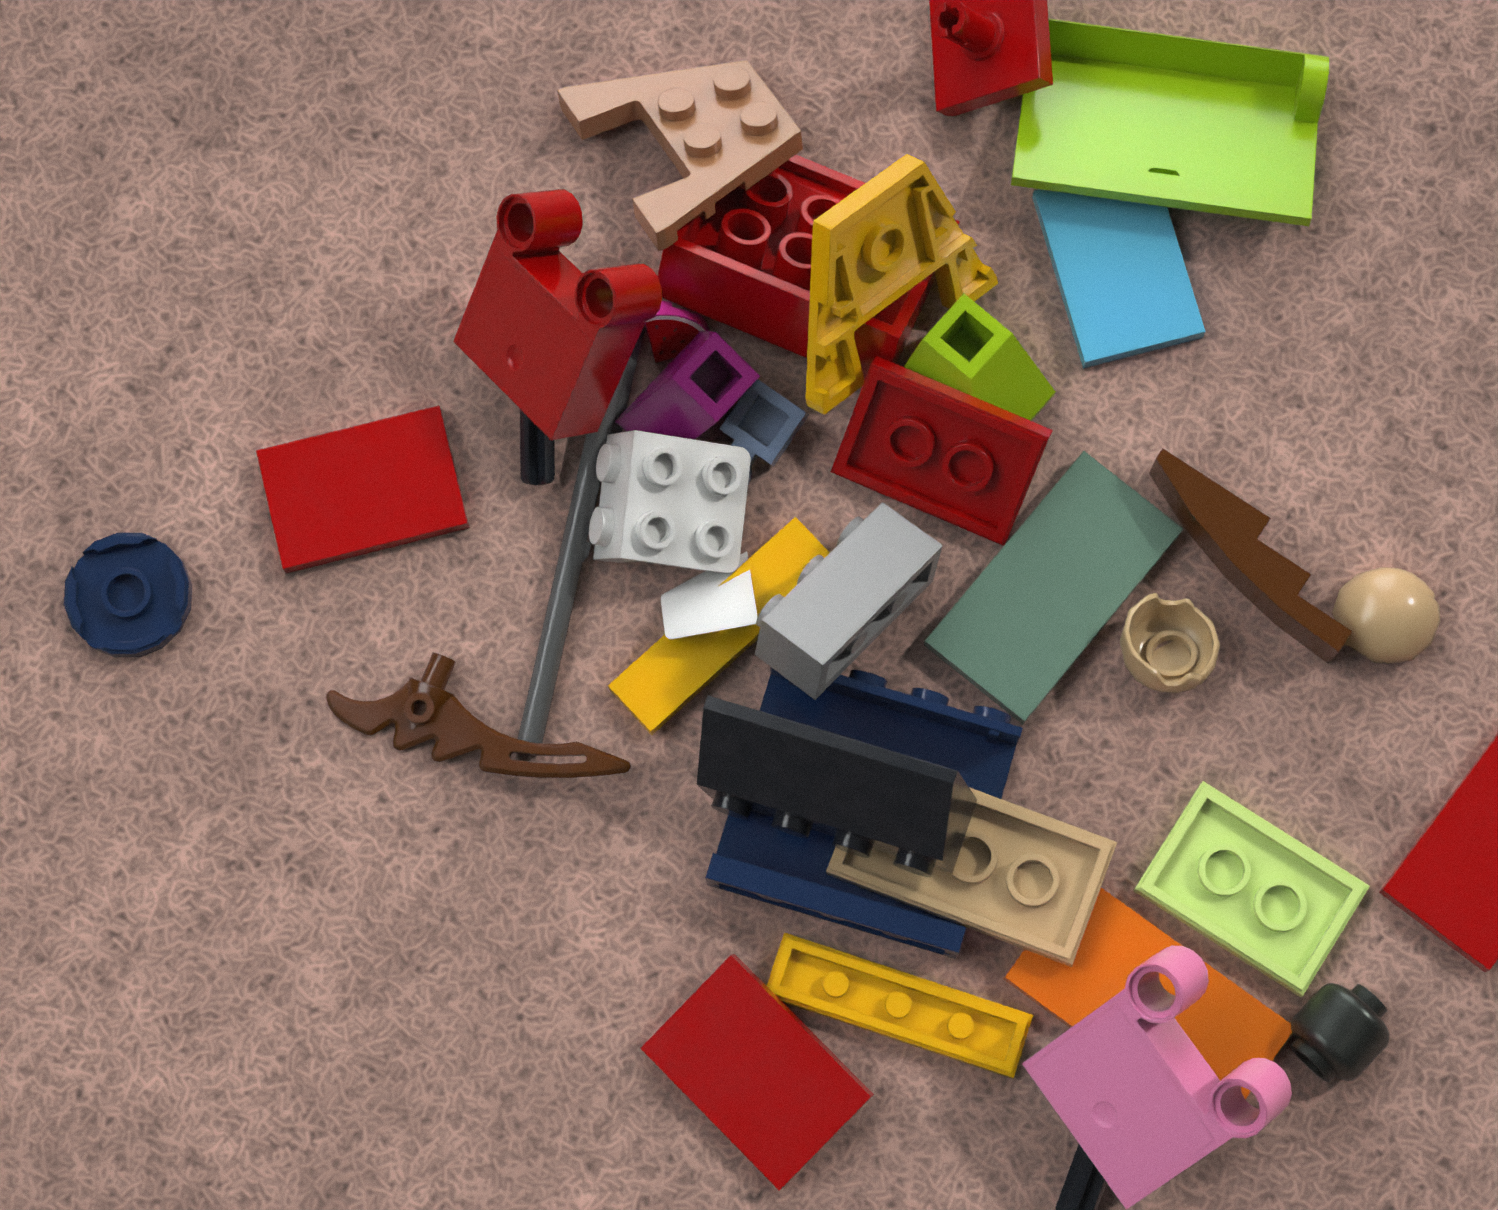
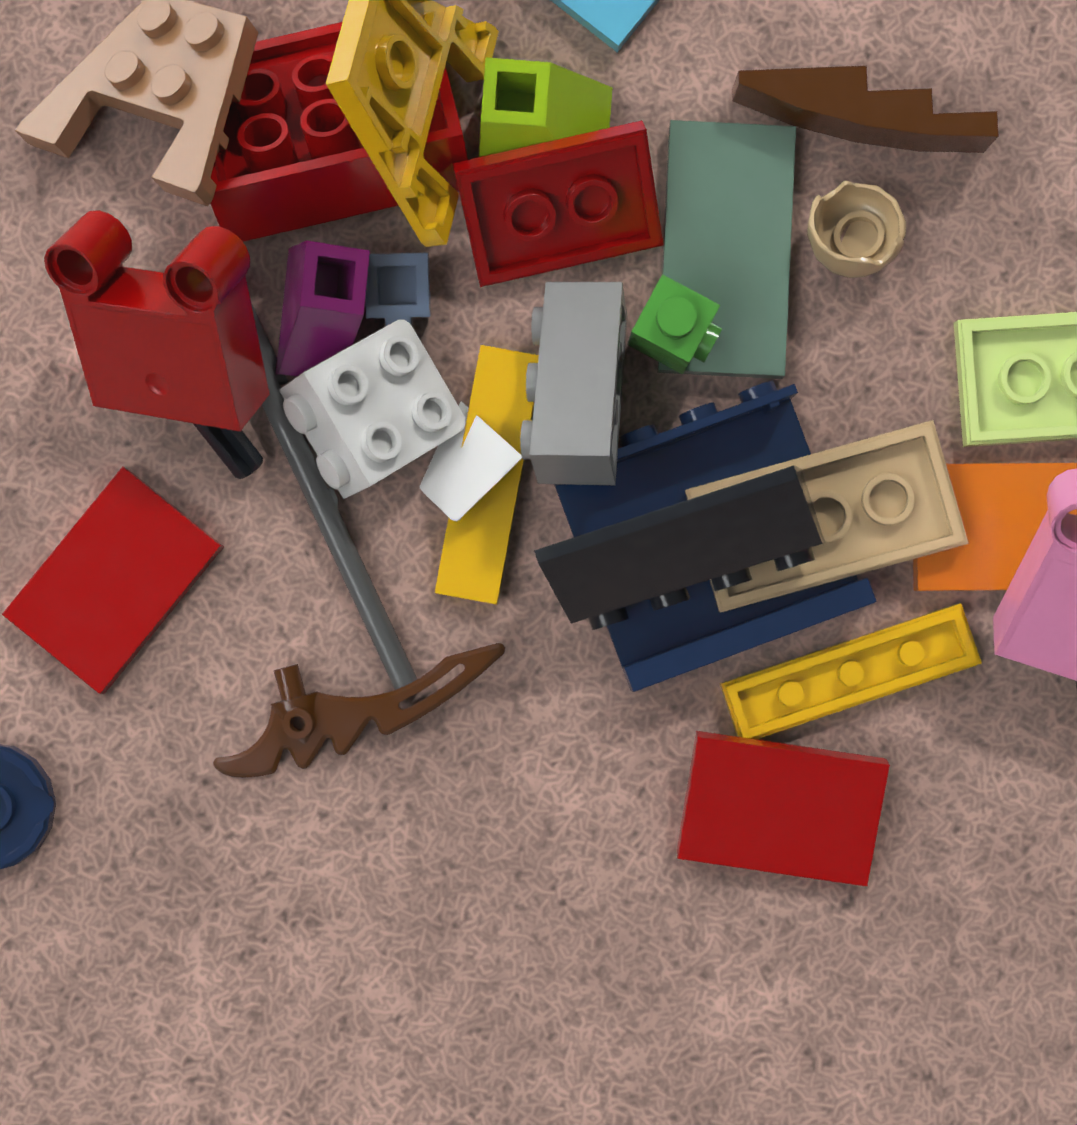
camera: 40 degrees left, 10 degrees up
(672, 330) = (268, 264): red tile -> none
(959, 610) = (675, 325): none -> bright green brick
(1389, 614) = (1004, 74): tan hair -> none

